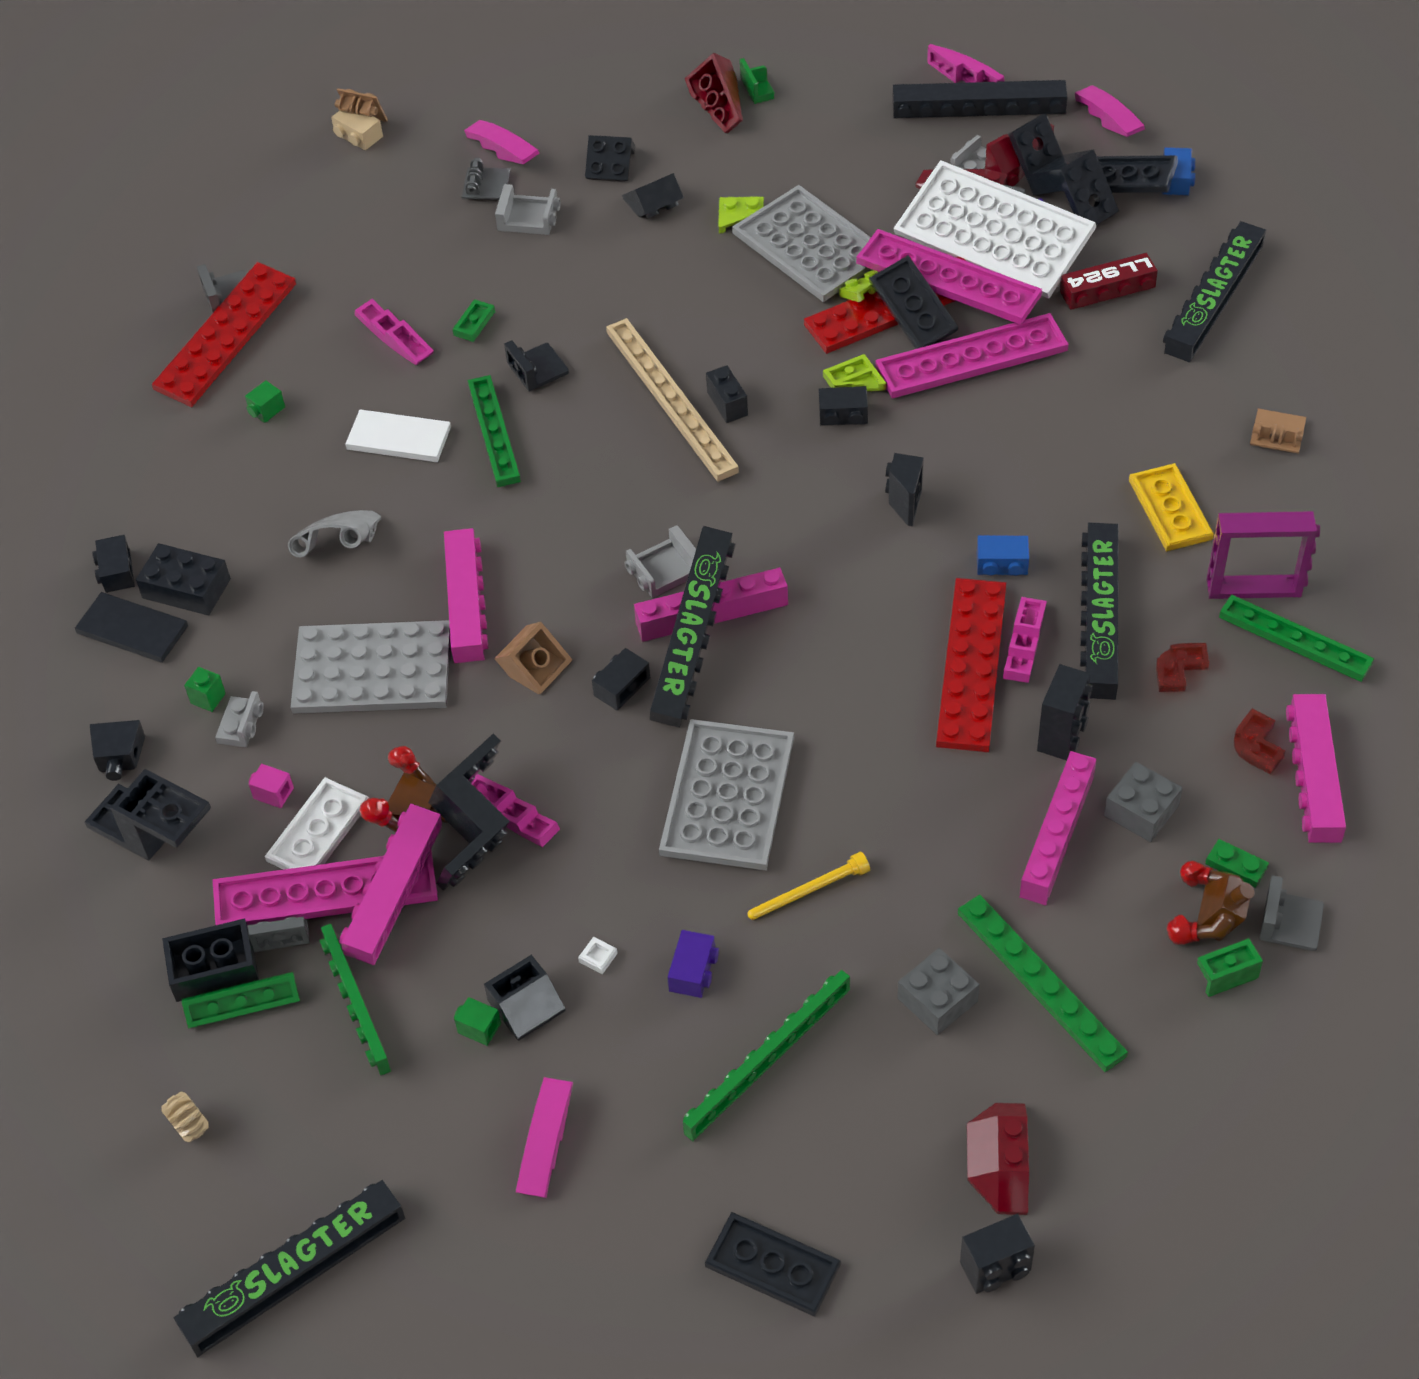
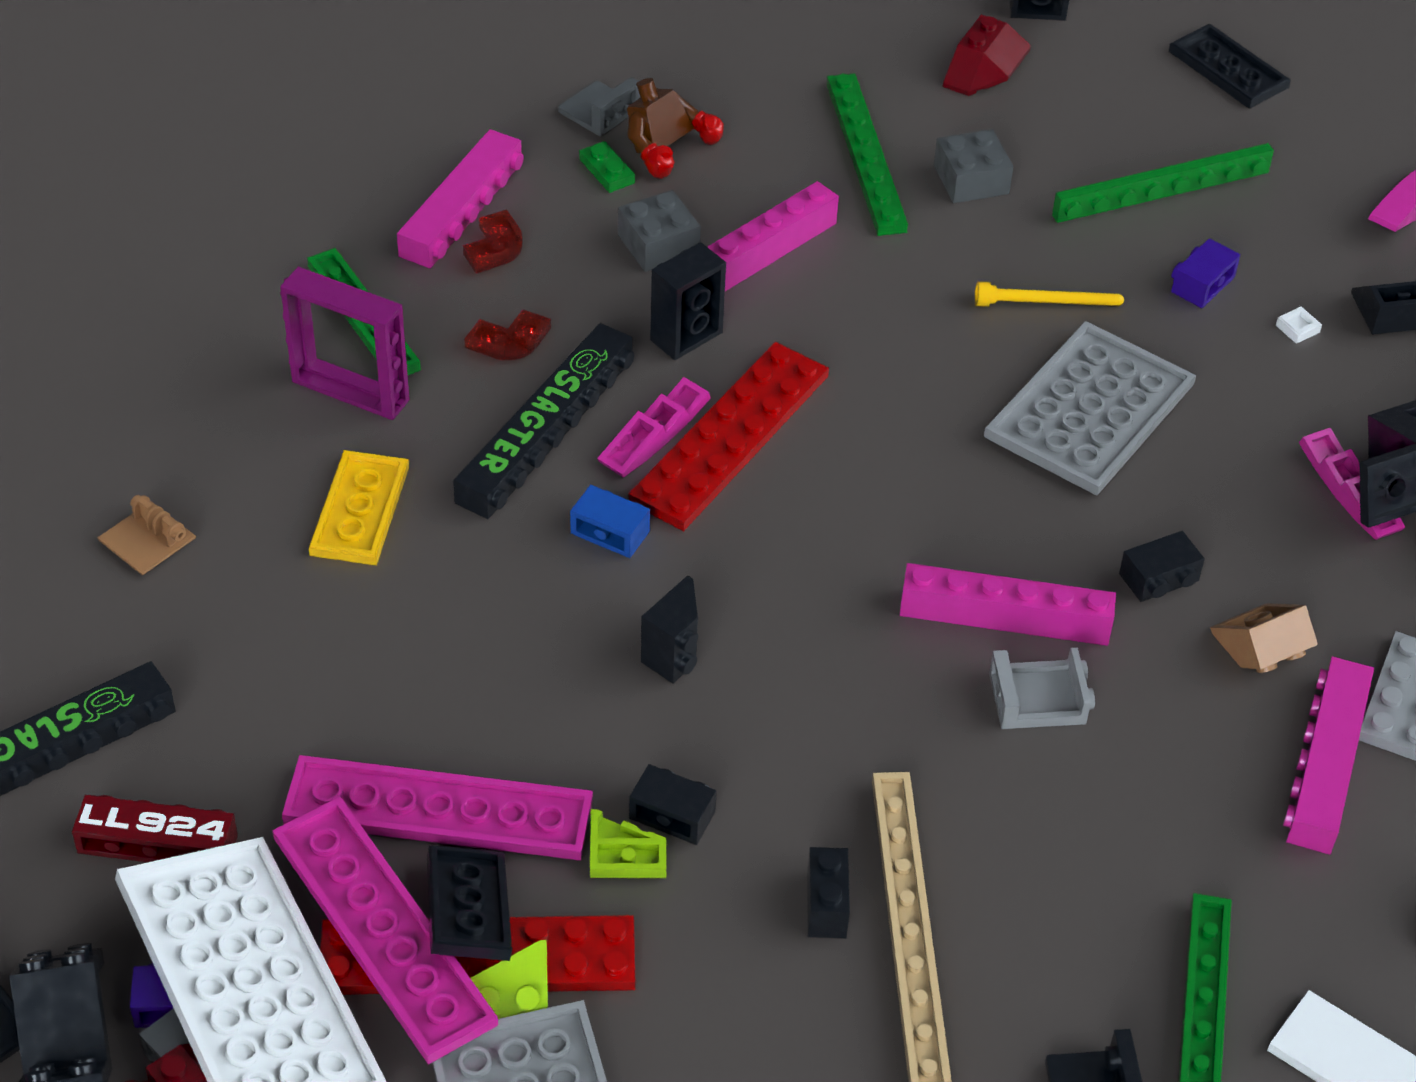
camera: 160 degrees left, 5 degrees down
(691, 627) = (1053, 551): black brick -> none
(1230, 967) = (692, 81): green panel -> none

